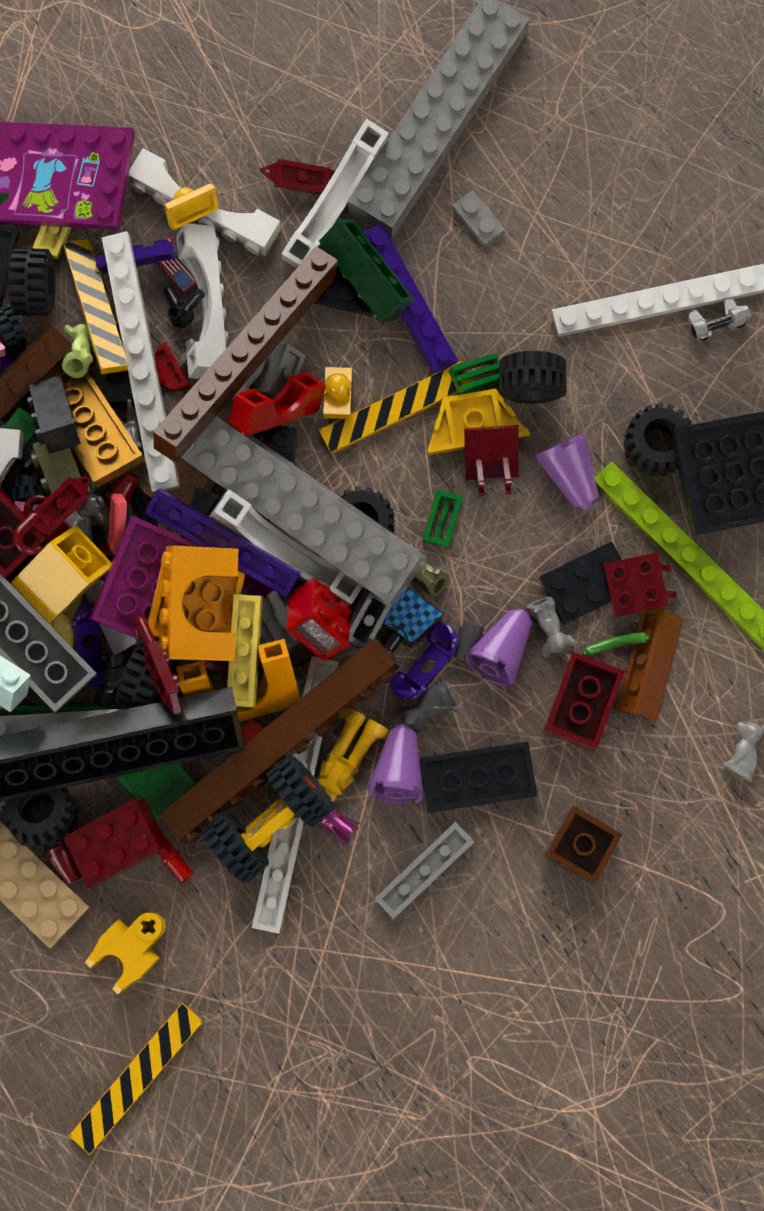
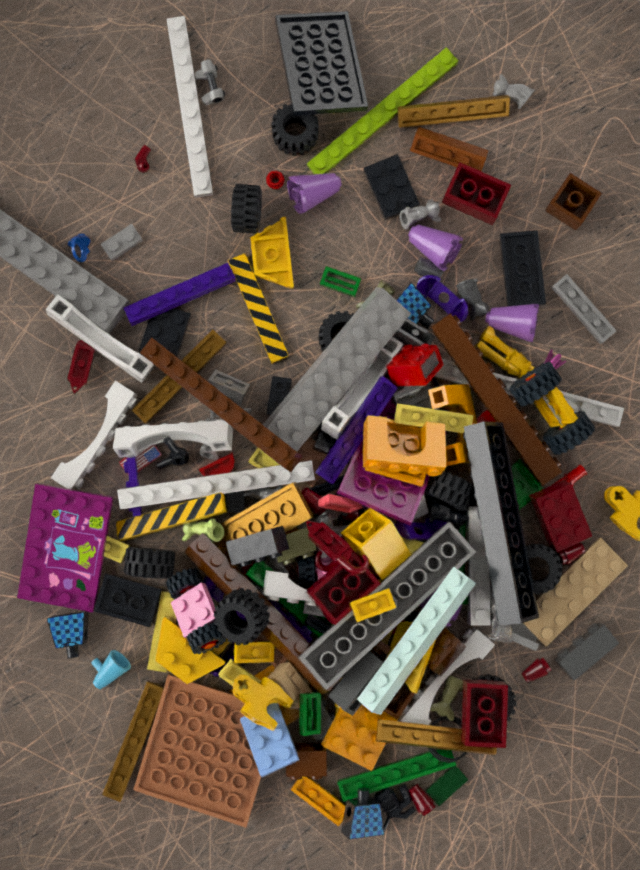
camera: 90 degrees left, 5 degrees up
(158, 663) = (449, 475): dark red plate -> none
(191, 205) = (100, 442): yellow tile -> none
(256, 412) = (264, 397): red arch -> none
(313, 323) = (168, 388): none -> pearl gold plate
(337, 393) = (245, 347): yellow tile -> none
(366, 271) = (159, 319): dark green brick -> none
(473, 167) = (83, 242): none -> blue piece
(473, 364) = (234, 237): green tile -> none
(491, 454) = (297, 243): dark red plate -> none
(587, 412) = (275, 174): none -> red plate
(598, 235) = (140, 159): none -> dark red arm
(618, 641) = (433, 171): bright green piece -> none
(637, 584) = (397, 151): dark red plate -> none
(708, 666) = (453, 111): none -> pearl gold plate

